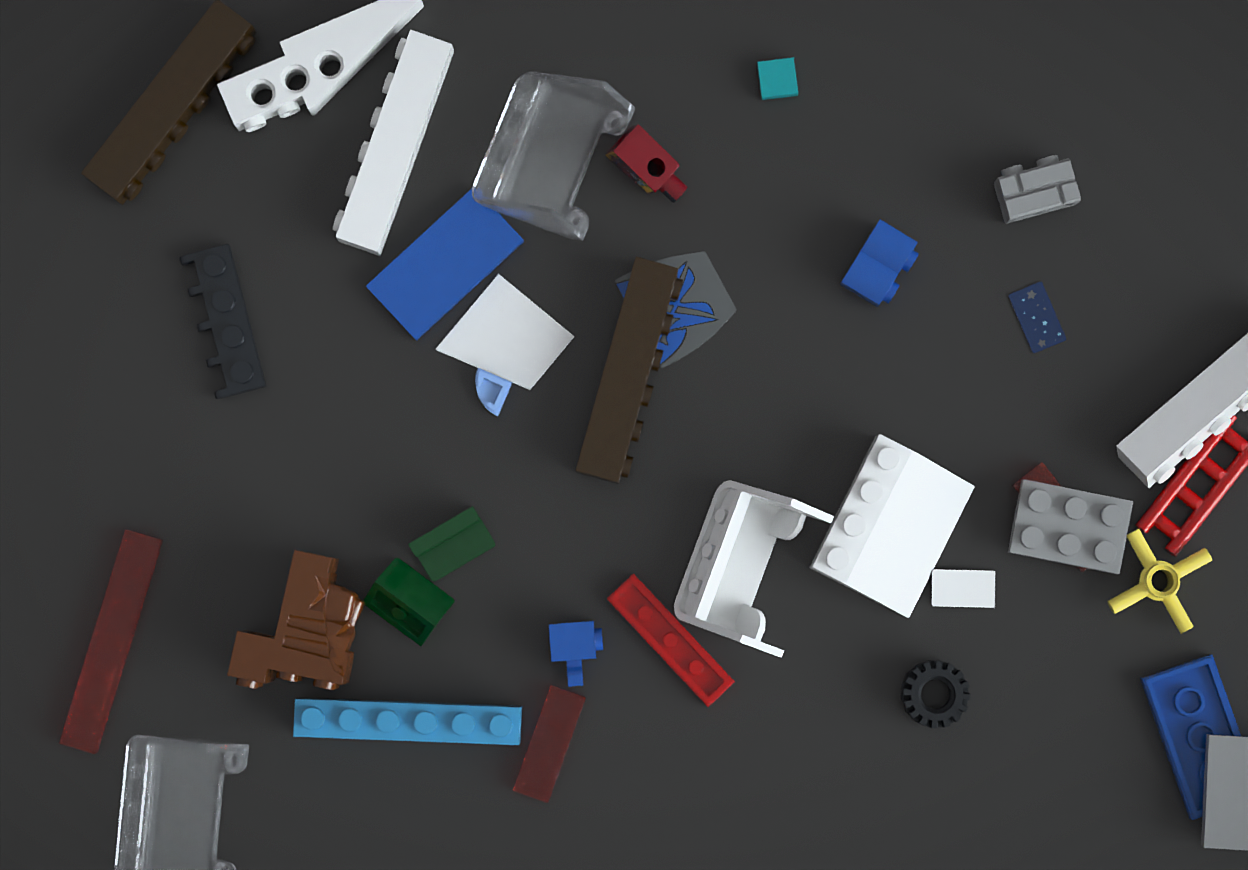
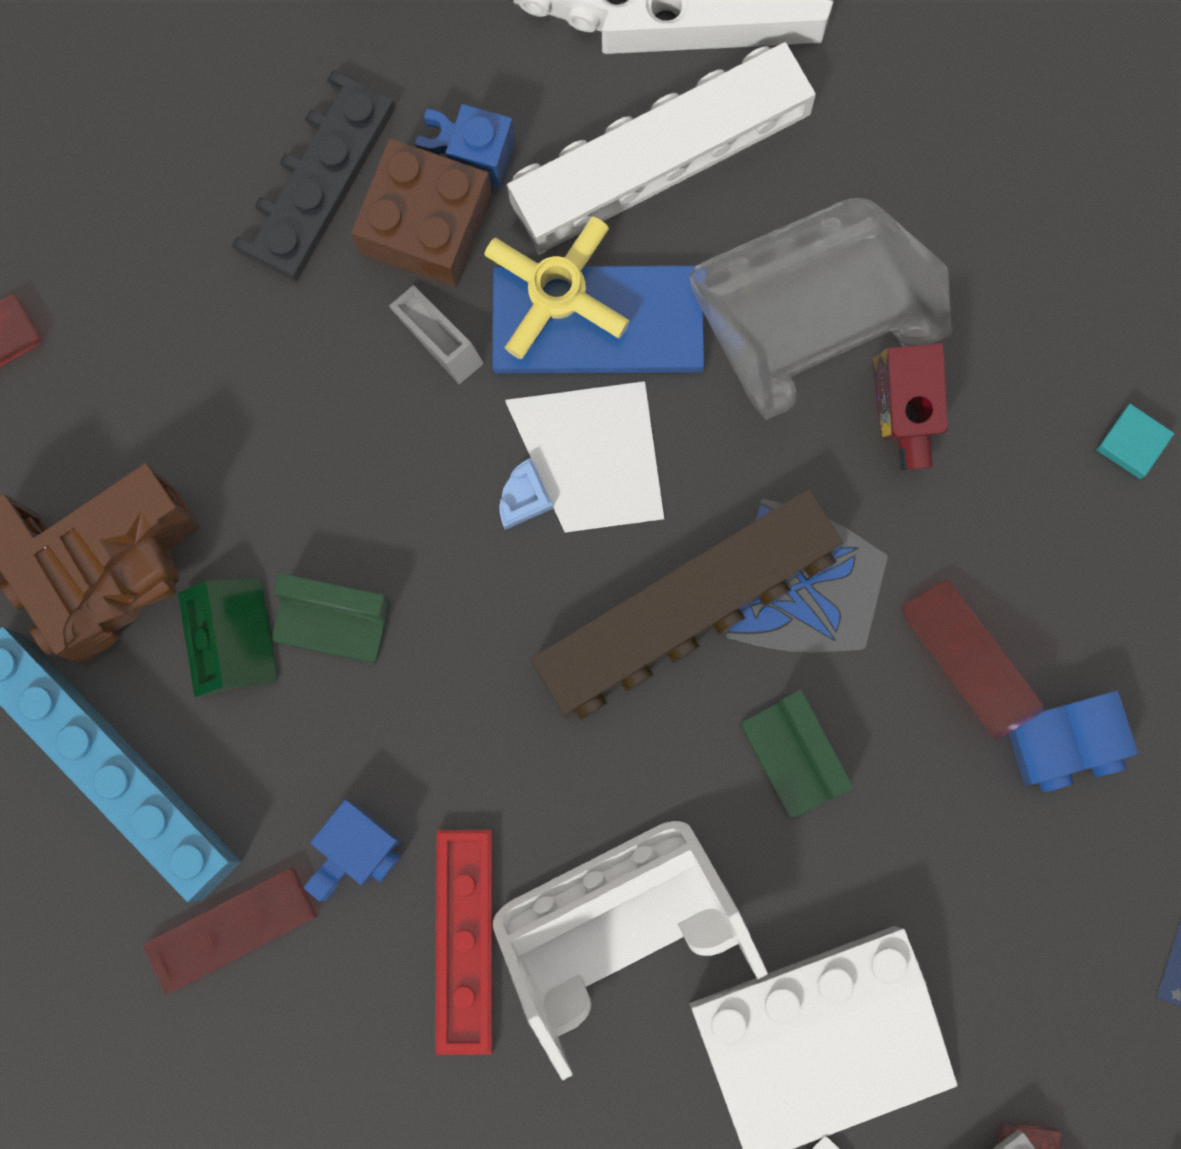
camera: 50 degrees right, 5 degrees down
(296, 229) = (476, 139): none -> blue brick
(303, 291) = (422, 212): none -> reddish brown brick
(367, 347) = (437, 334): none -> light grey piece
(416, 283) = (551, 268): none -> light yellow bar
(750, 396) = (796, 755): none -> dark green panel
(794, 268) = (972, 659): none -> clear red tile

